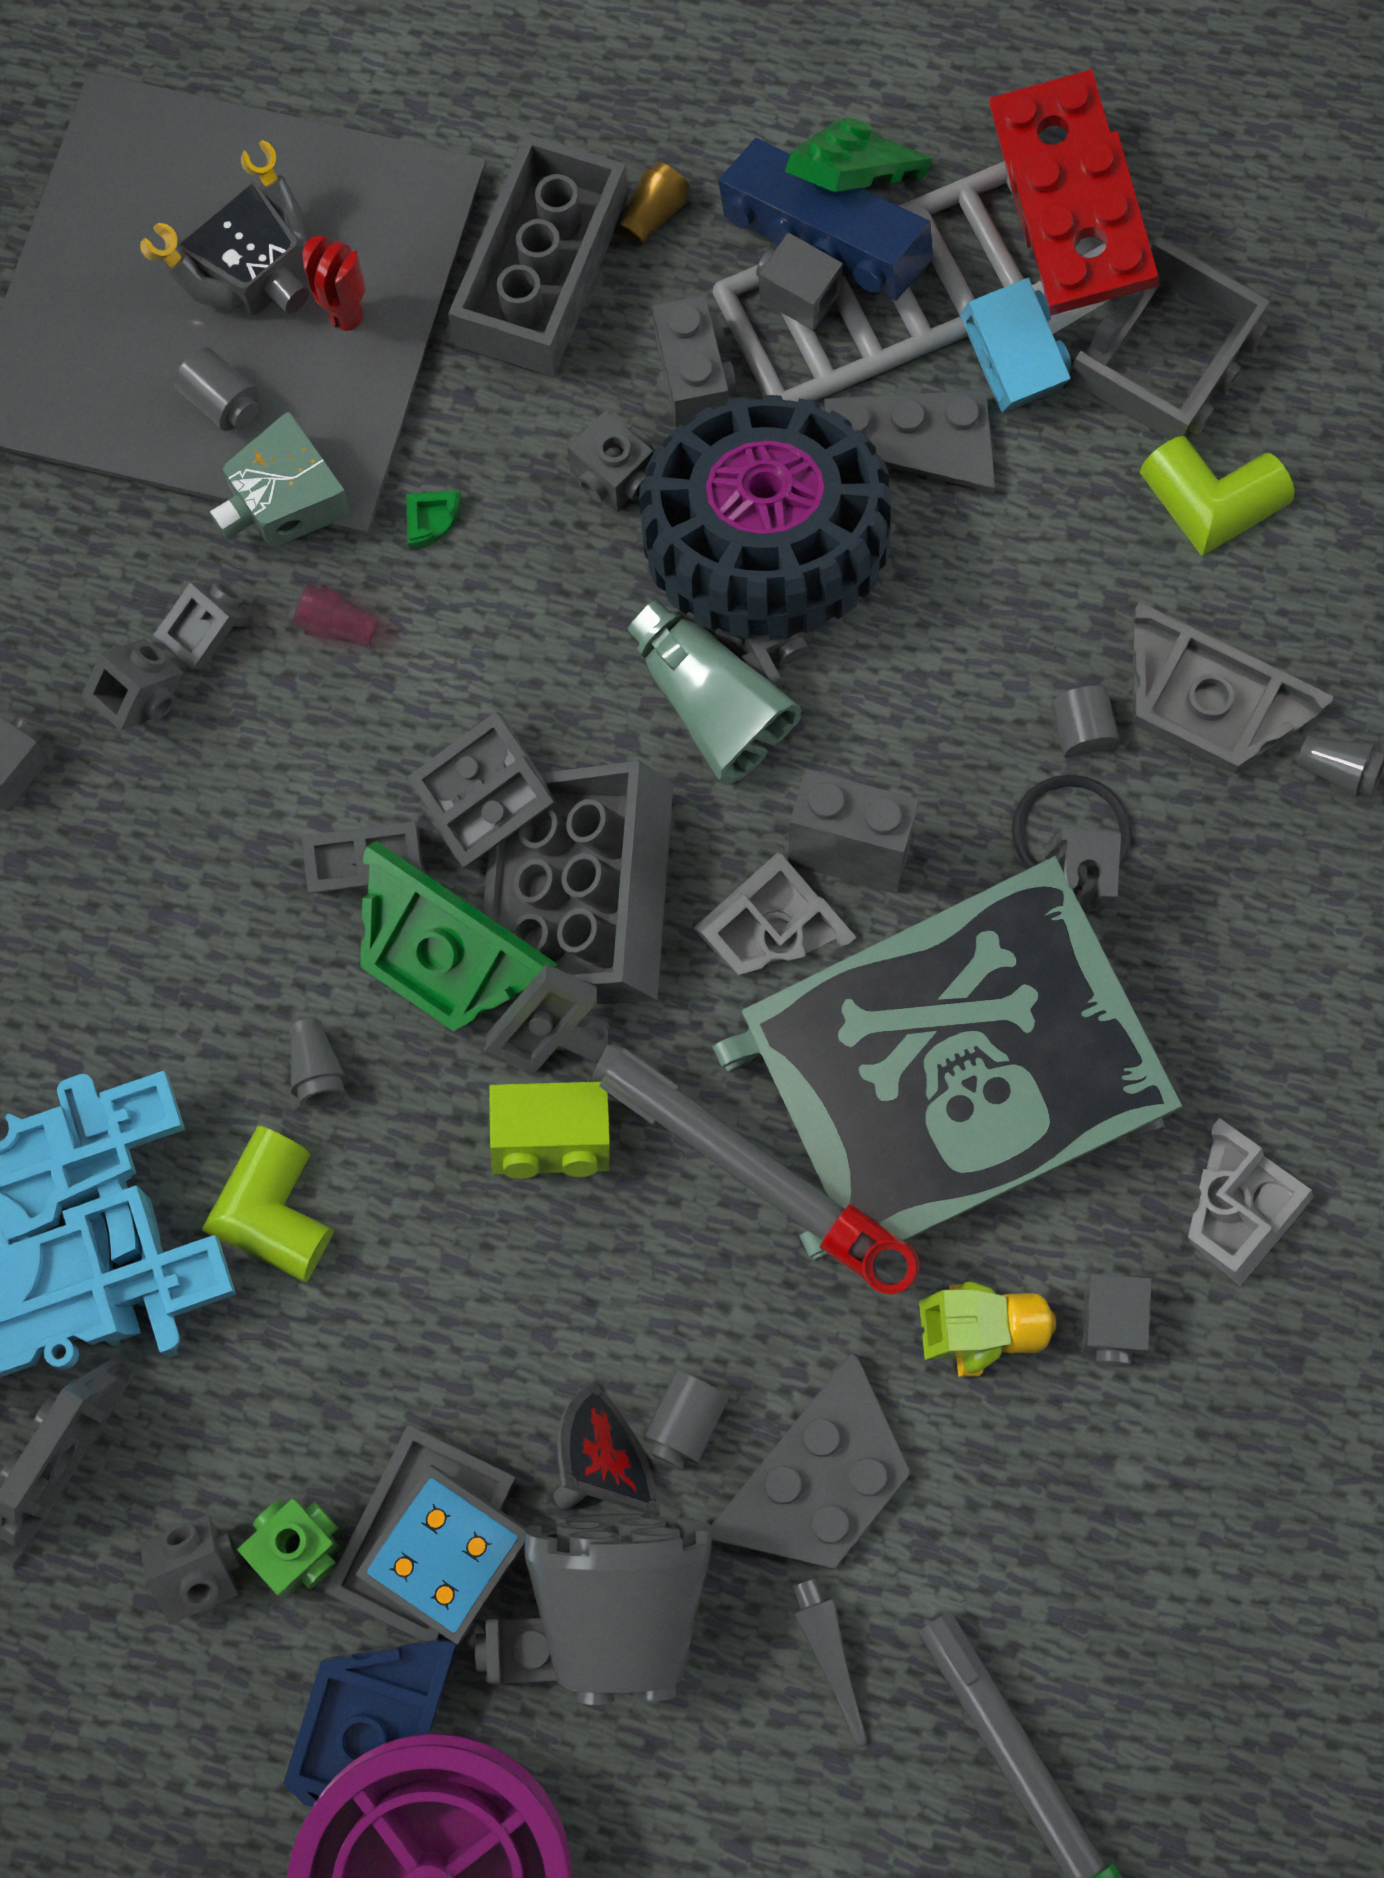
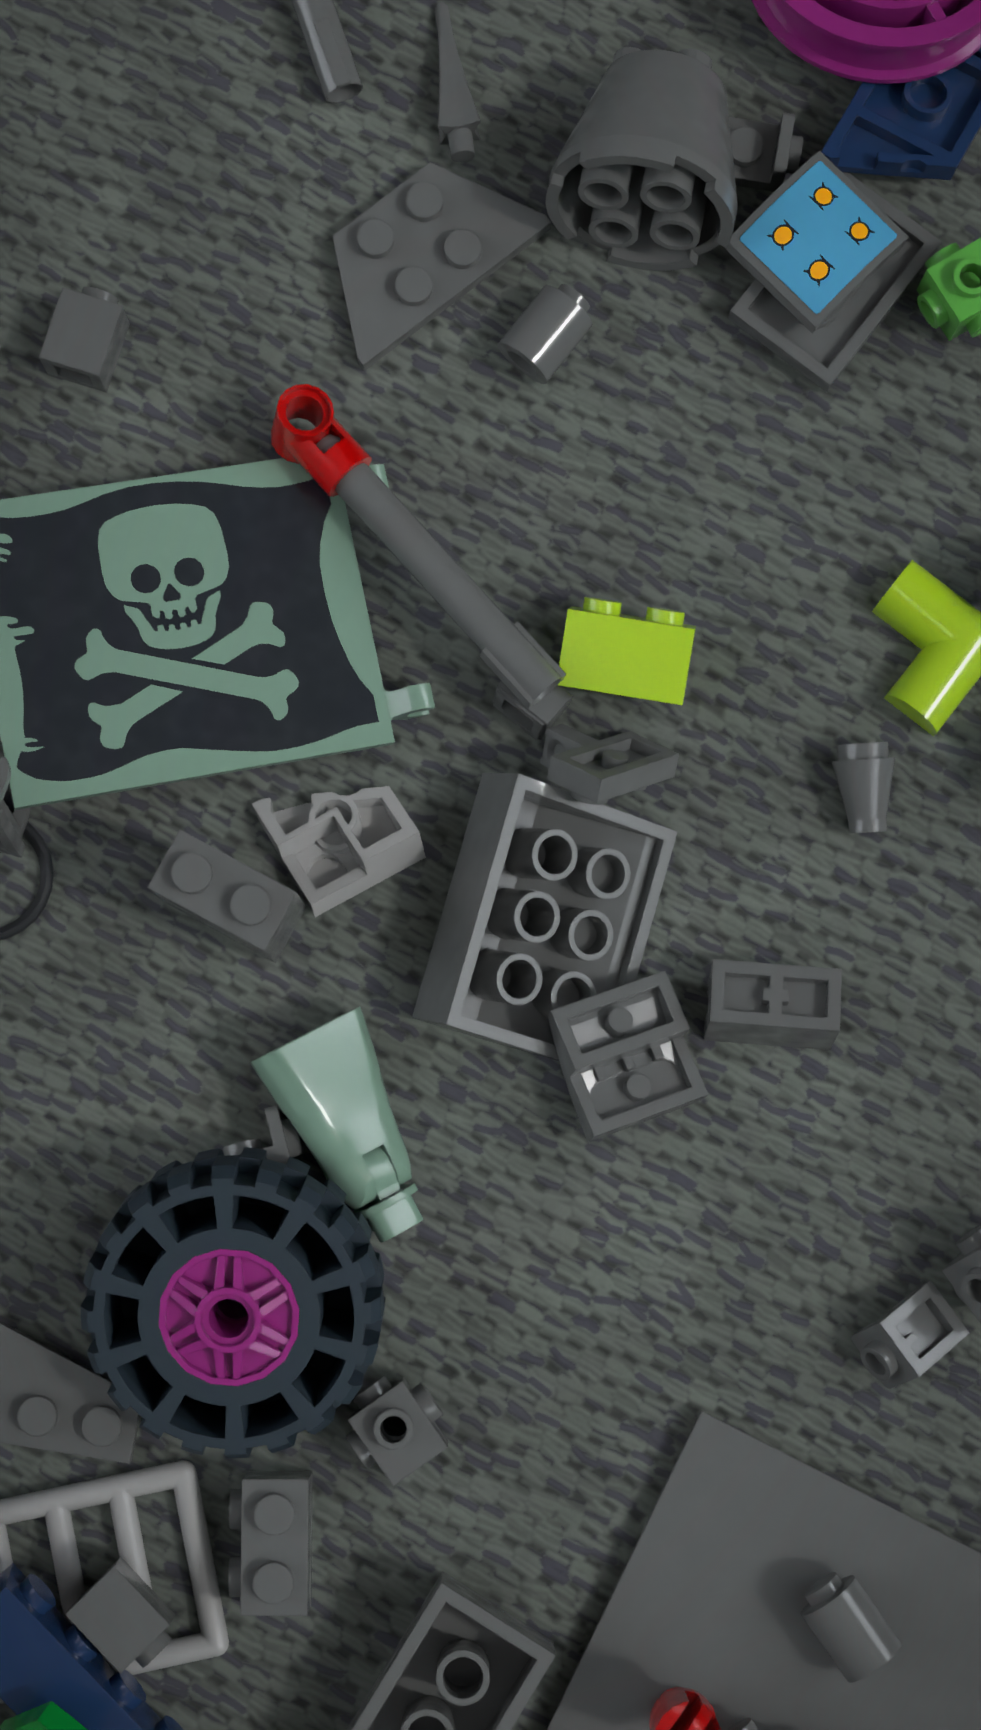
camera: 175 degrees left, 10 degrees up
(280, 487) = (796, 1479): sand green torso -> none
(332, 616) = (758, 1310): clear pink cone -> none
(430, 516) = (623, 1419): green tile -> none
(438, 945) = (707, 877): green wing -> none
(602, 1456) = (638, 310): shield -> none
(979, 1325) = (225, 354): lime piece -> none

